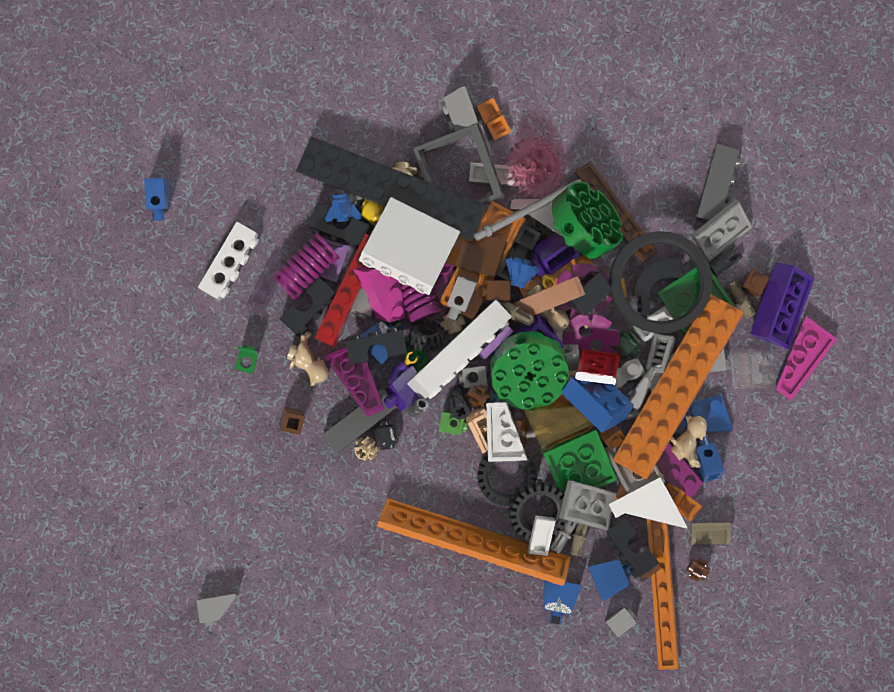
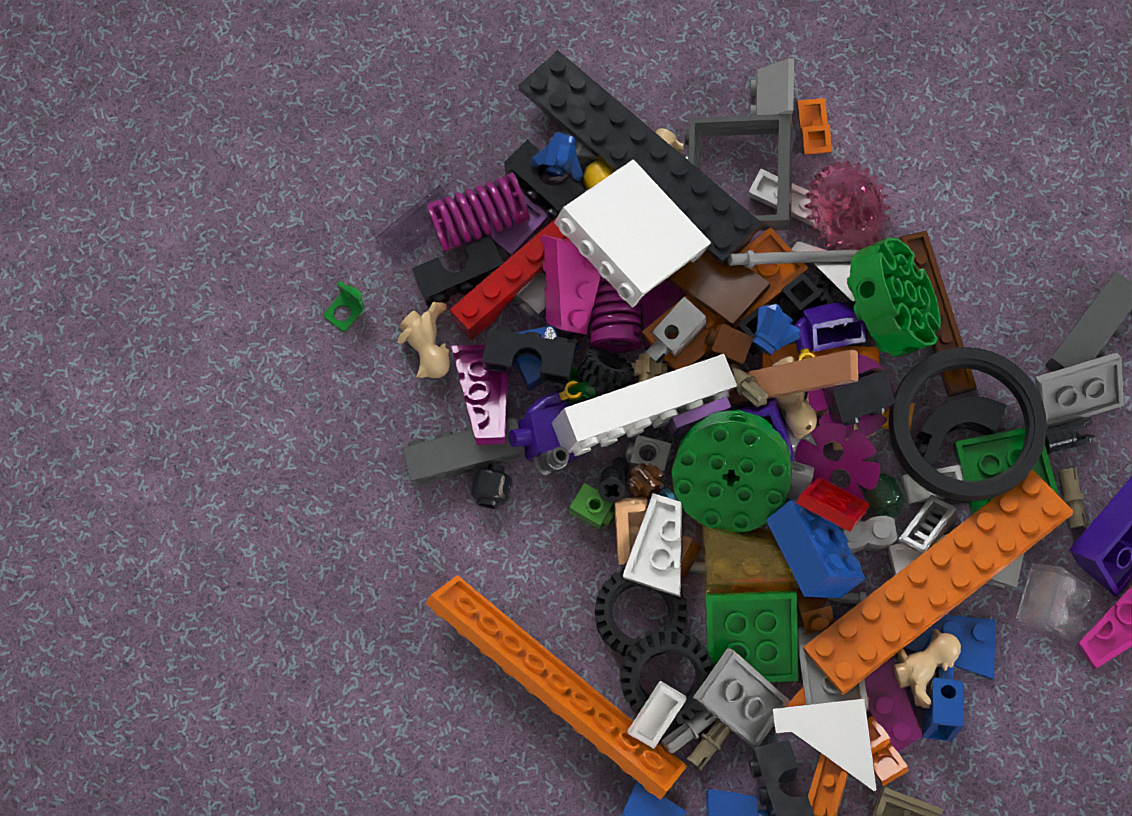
camera: 15 degrees right, 10 degrees down
(157, 188) = (319, 48): blue torso -> none
(214, 608) = (146, 630): light grey slope -> none
(218, 266) = (381, 156): white brick -> none
(291, 420) = (369, 411): reddish brown brick -> none
(365, 448) = (456, 492): tan gear -> none
(640, 392) = (881, 567): light grey slope -> none
(755, 283) = (1101, 482): reddish brown brick -> none

